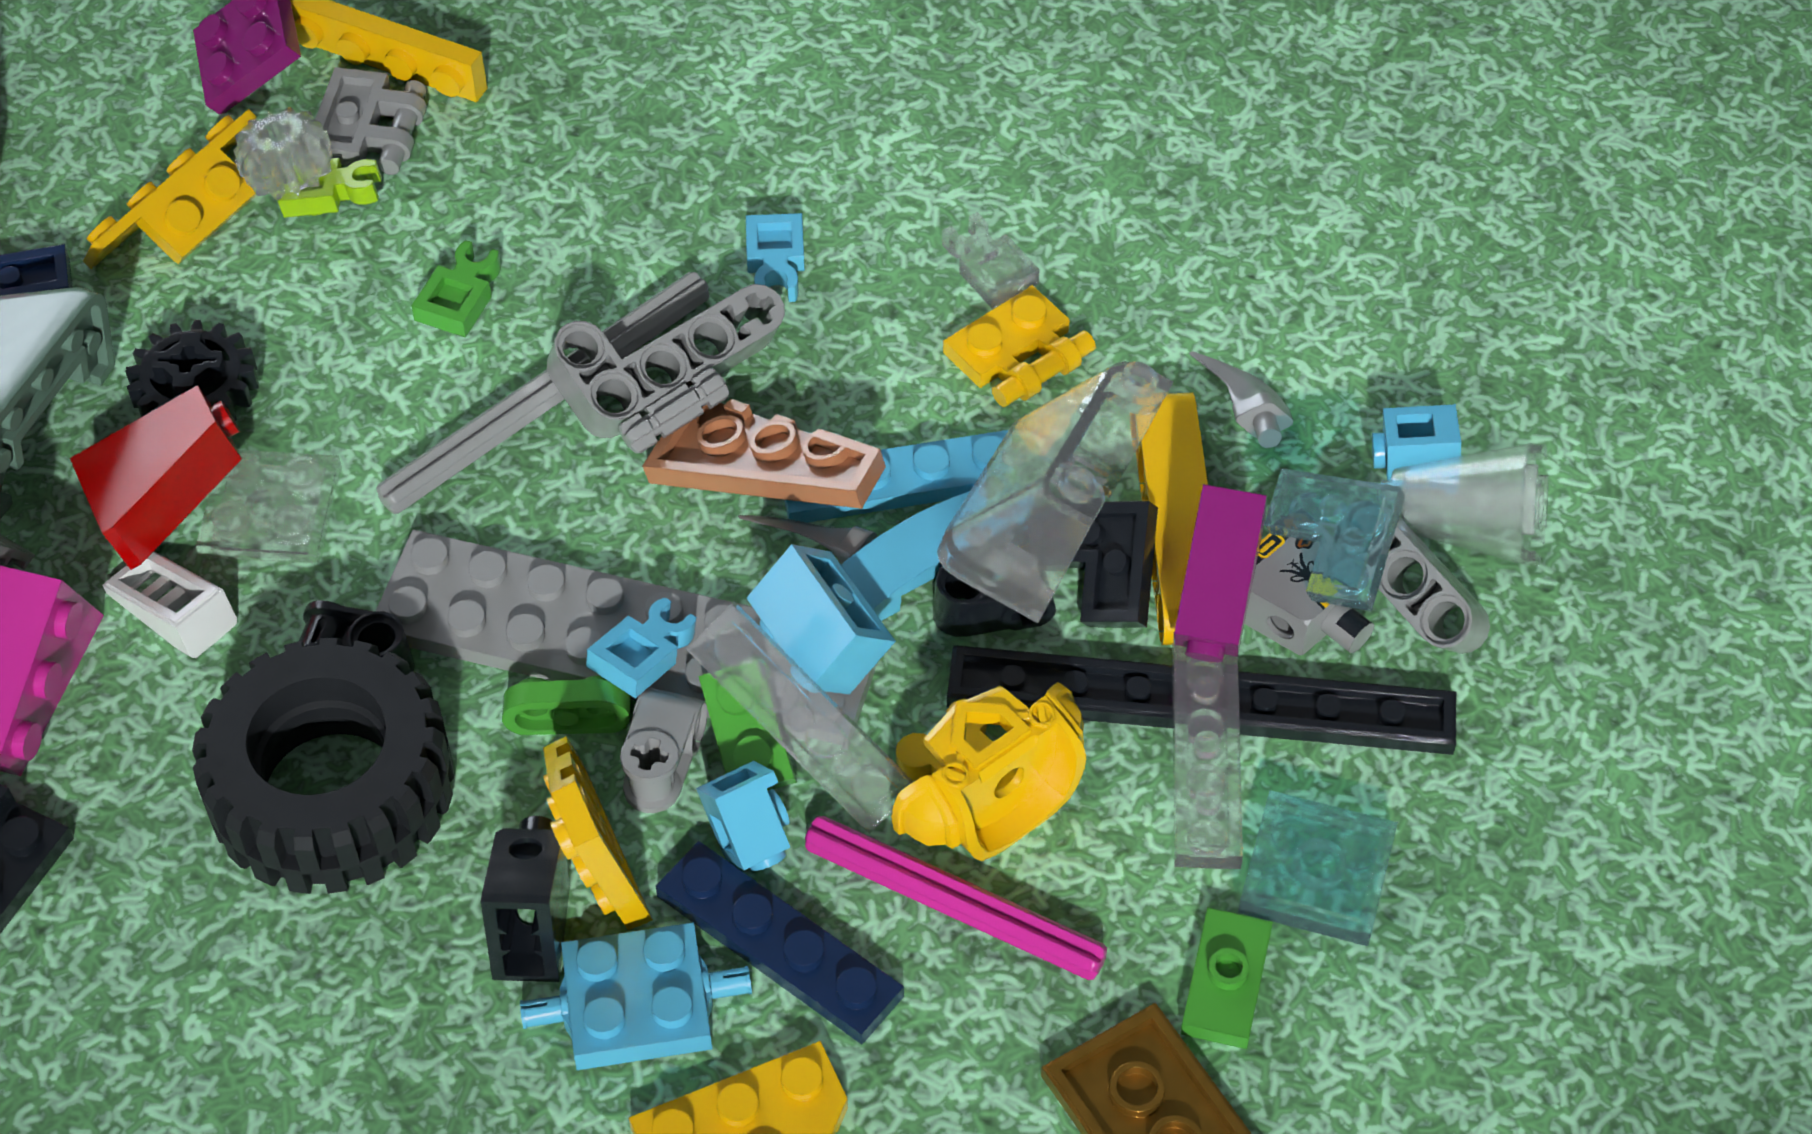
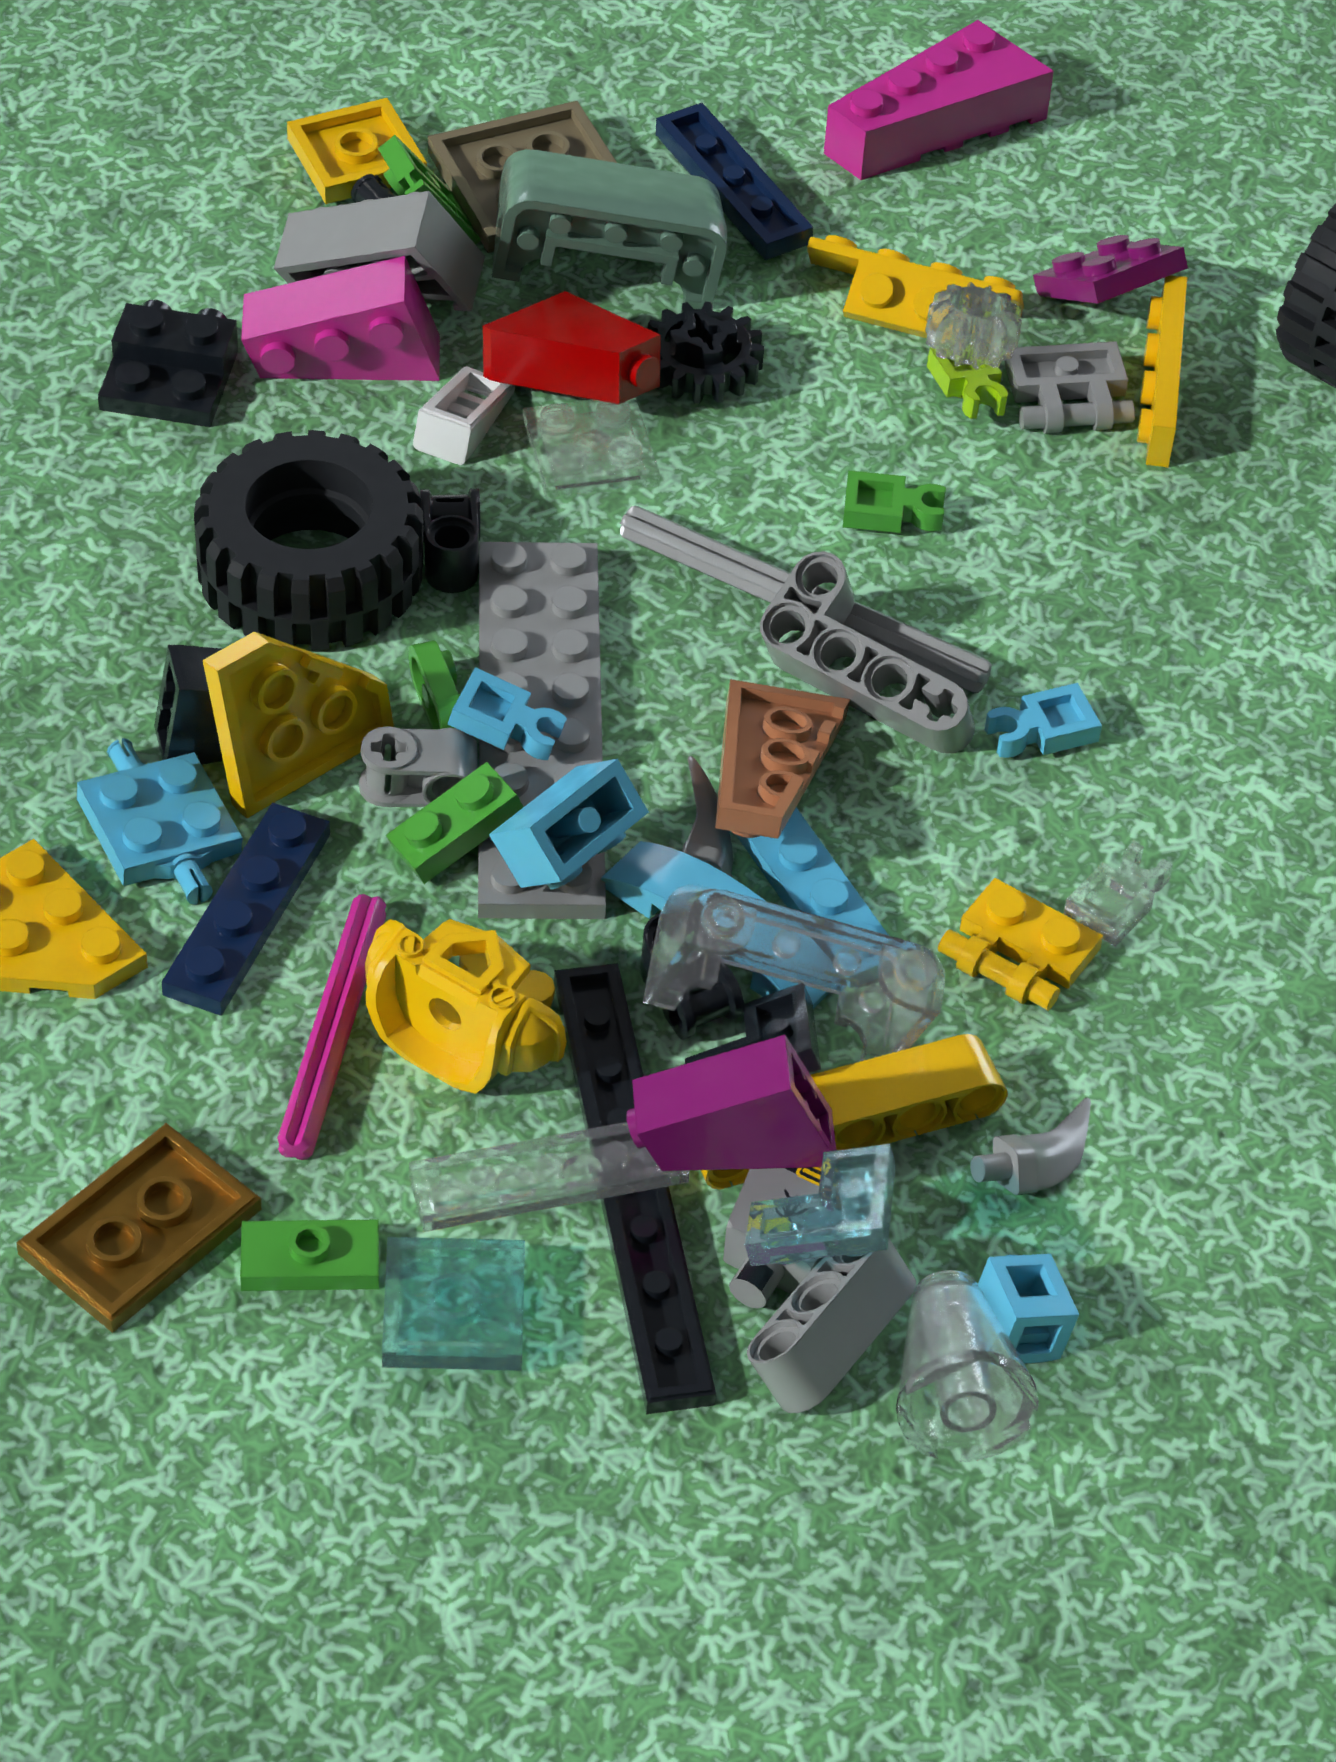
camera: 70 degrees right, 5 degrees down
(674, 410) = (798, 681): light grey axle -> none
(747, 816) = (351, 837): medium azure brick -> none
(800, 716) = (462, 822): clear plate -> none

